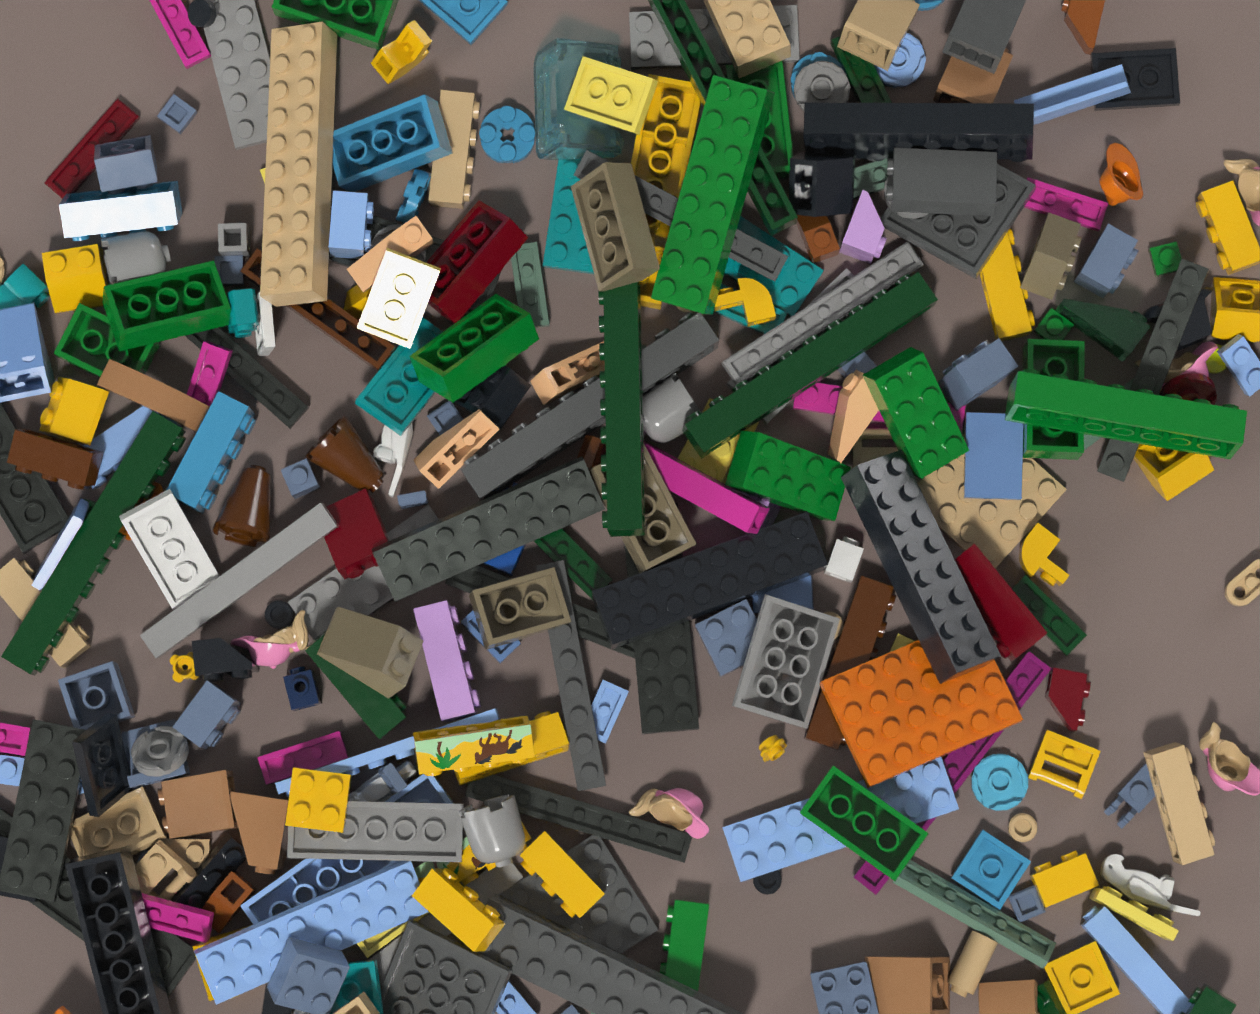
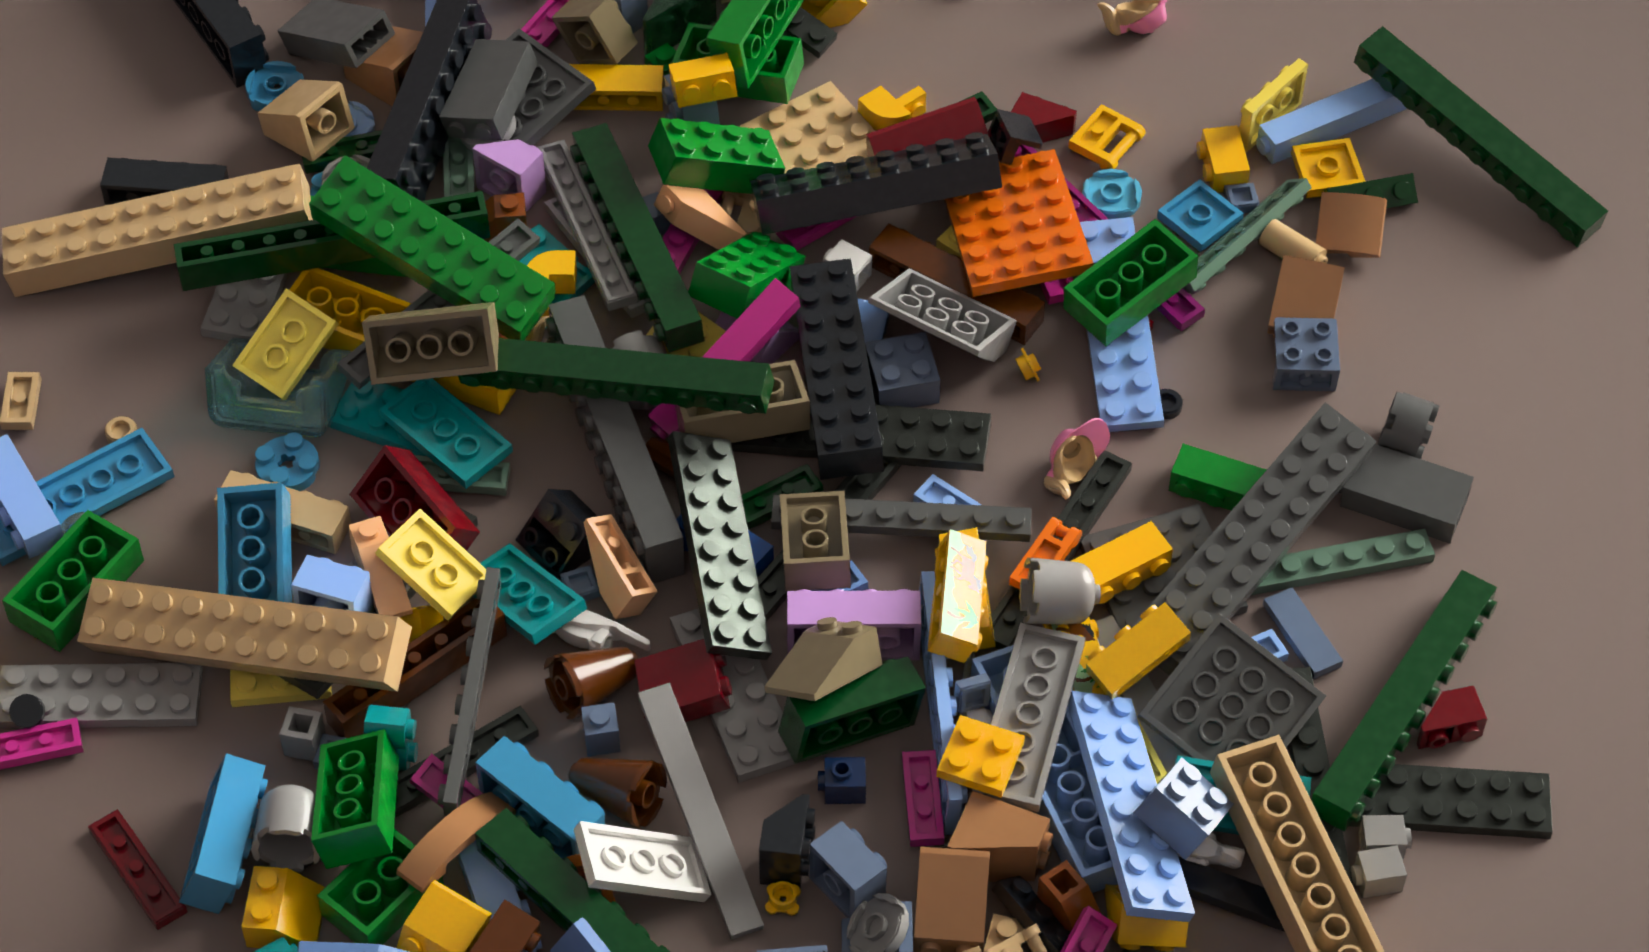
camera: 80 degrees left, 30 degrees down
(126, 164) = (172, 816): sand blue brick -> none
(177, 114) = (132, 768): sand blue plate -> none
(265, 330) = (426, 709): white tile -> none
(276, 367) = (472, 678): none -> dark grey plate
(276, 648) = (782, 777): hair -> none
(279, 614) = (749, 791): black tile -> none
(403, 53) = (156, 528): yellow brick -> none
(413, 499) = (660, 628): sand blue tile -> none
(414, 195) = (321, 542): dark azure plate -> none
(474, 348) = (514, 515): green brick -> none
(554, 266) = (446, 431): none -> teal plate
(556, 808) = (1048, 547): none -> orange plate
(567, 374) = (570, 454): light nougat slope -> none
(821, 184) = (449, 178): black slope -> none
(979, 379) = (703, 80): none -> yellow brick
(994, 457) = (791, 122): medium blue tile -> none
(1021, 679) = (1011, 130): none -> black panel
(1022, 827) = (1162, 186): tan tile -> none
(1135, 793) = (1146, 87): sand blue hinge -> none
(1141, 885) = (1247, 87): white animal -> none
(1179, 803) = (1169, 51): tan brick -> none

